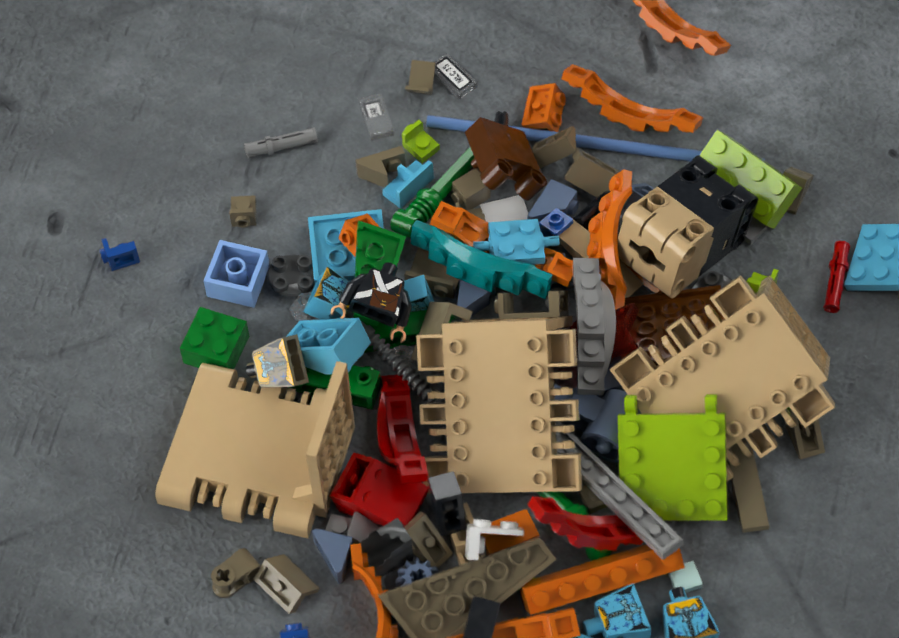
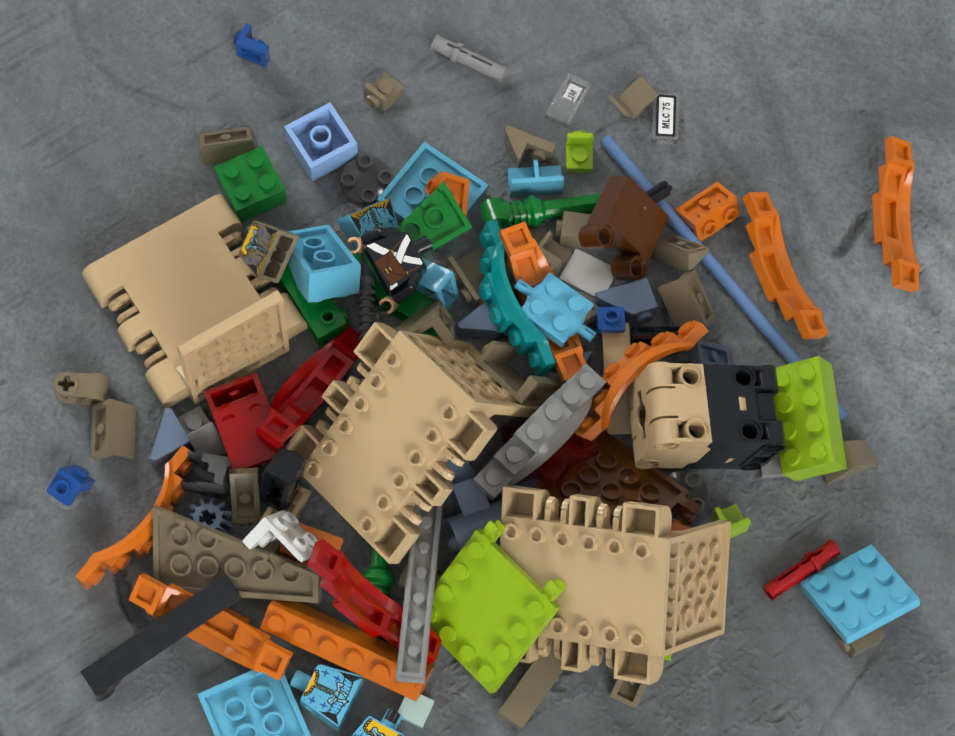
camera: 35 degrees right, 10 degrees up
(167, 333) = (225, 144): none -> dark tan slope

